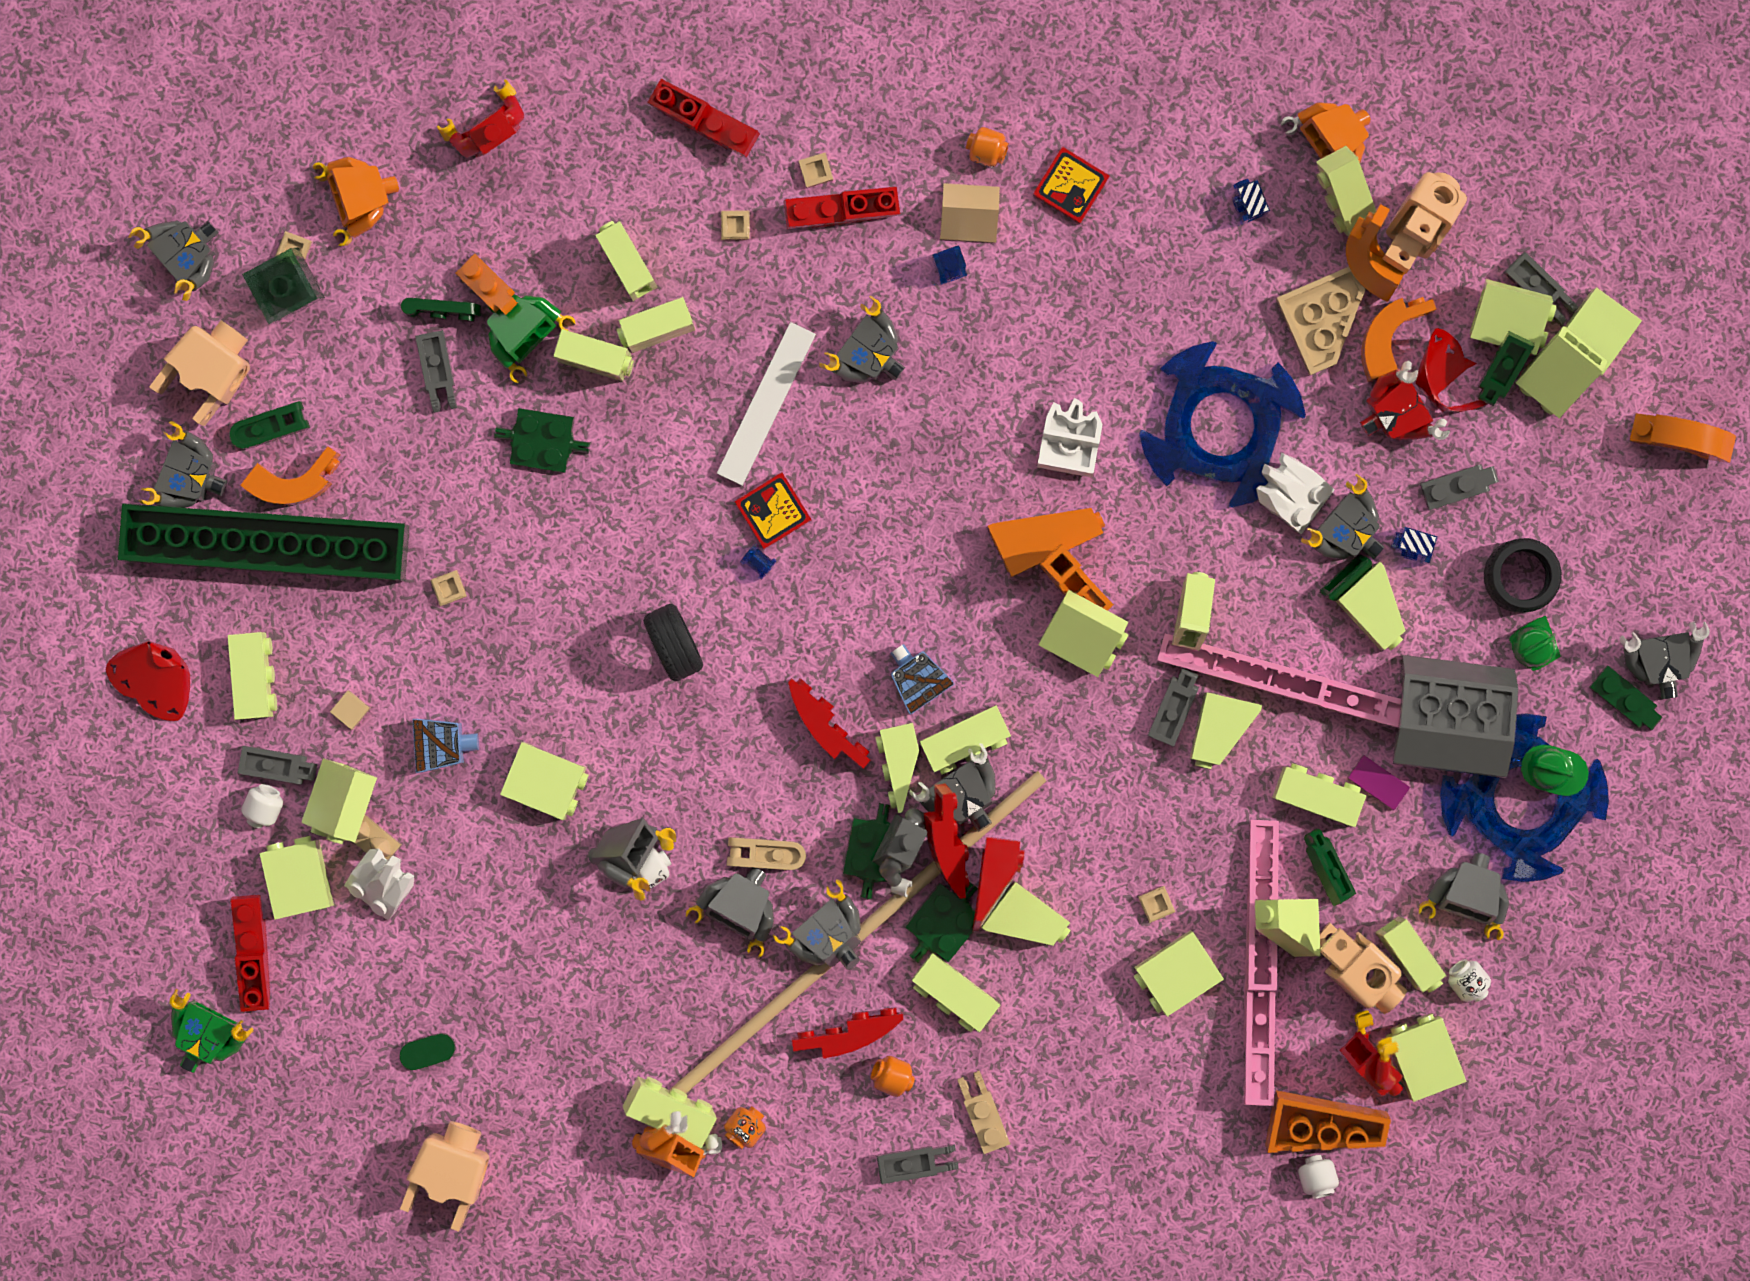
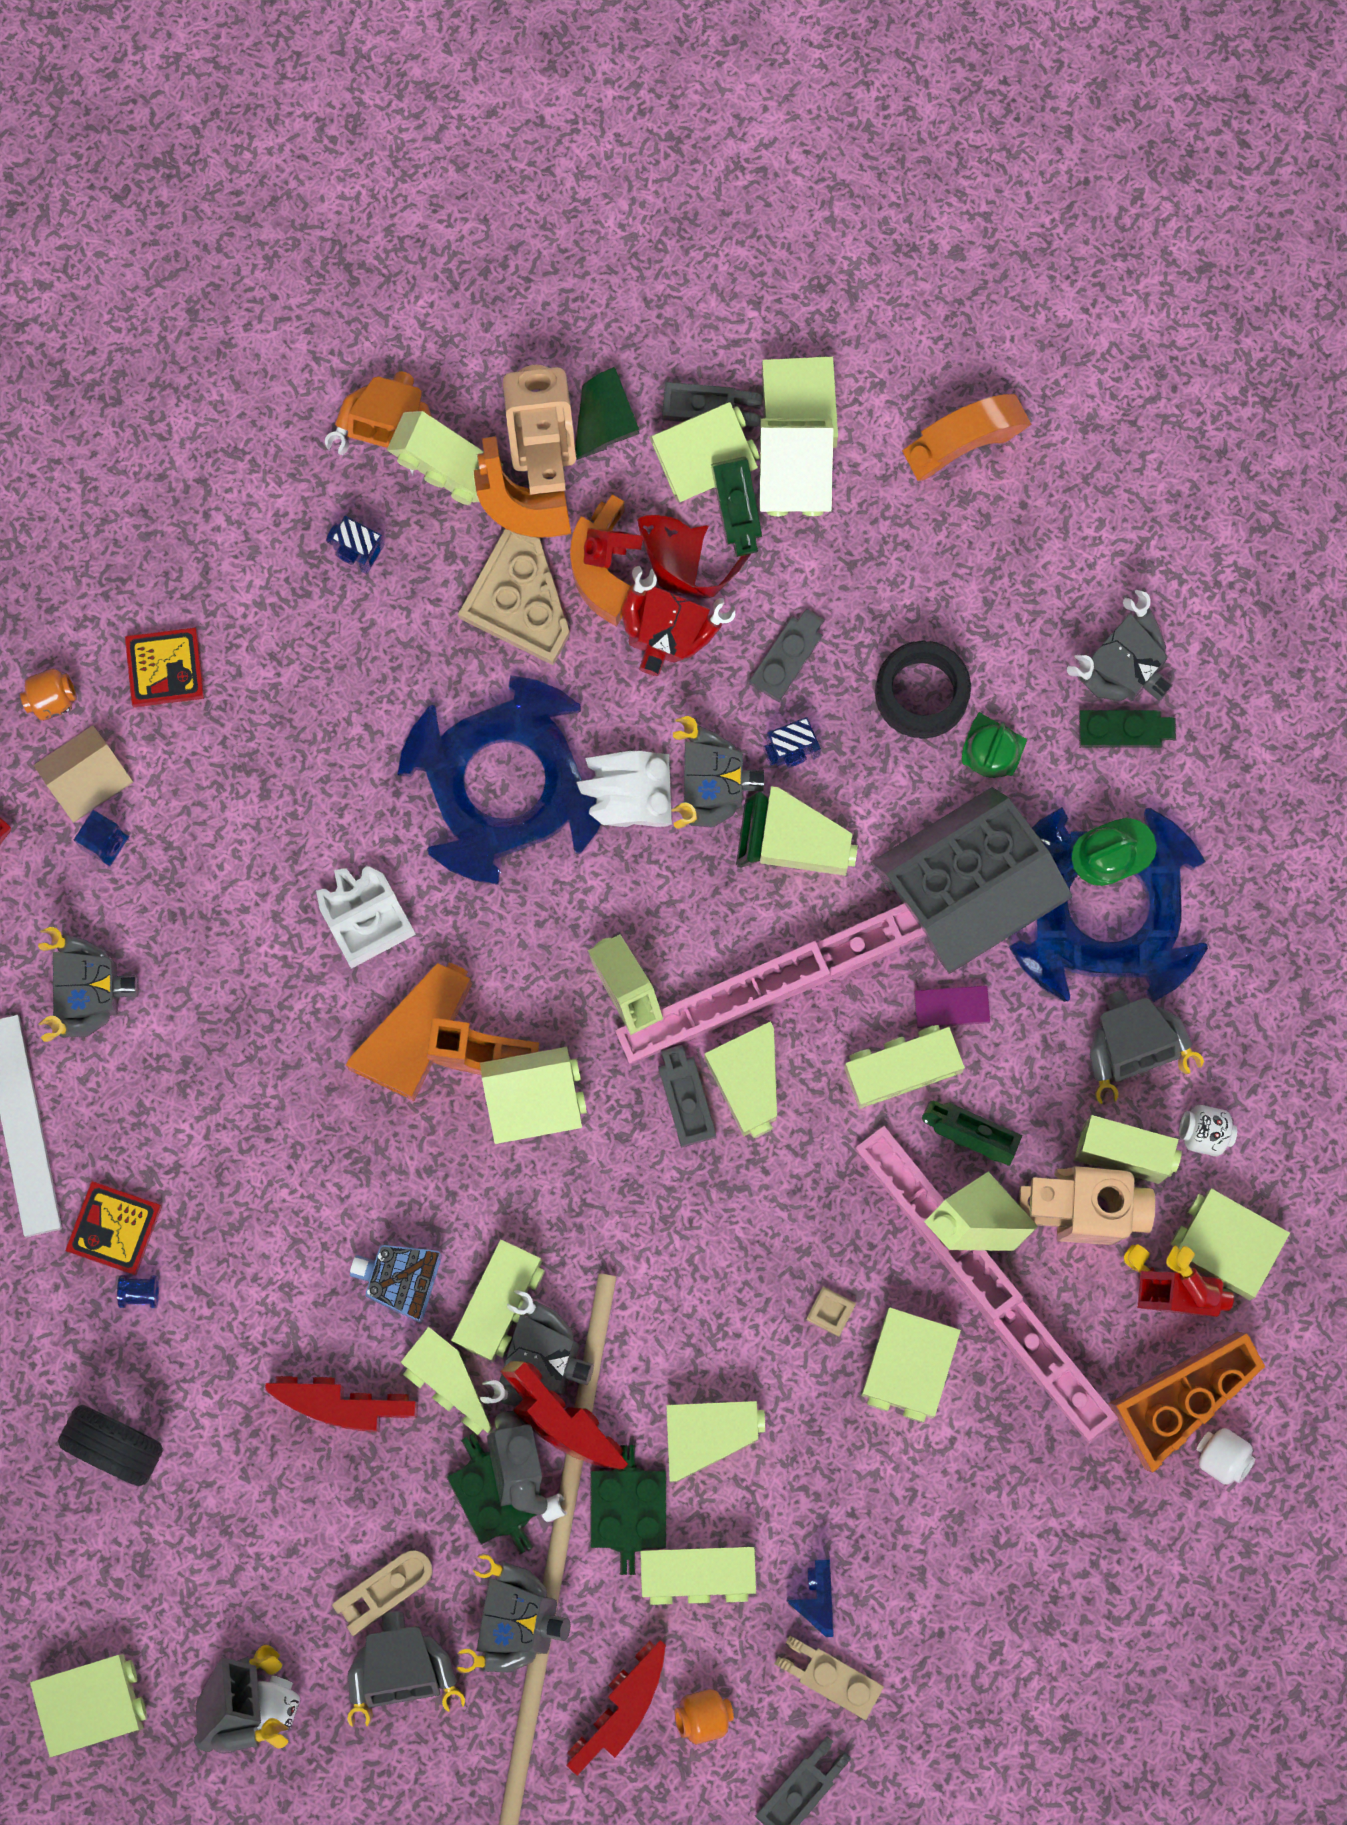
camera: 40 degrees left, 10 degrees down
(998, 868) = (635, 1399): red slope -> none
(1009, 1070) = (819, 1608): none -> clear blue slope
(1404, 328) = (602, 543): none -> red bracket
(1469, 240) = (603, 415): none -> dark green slope

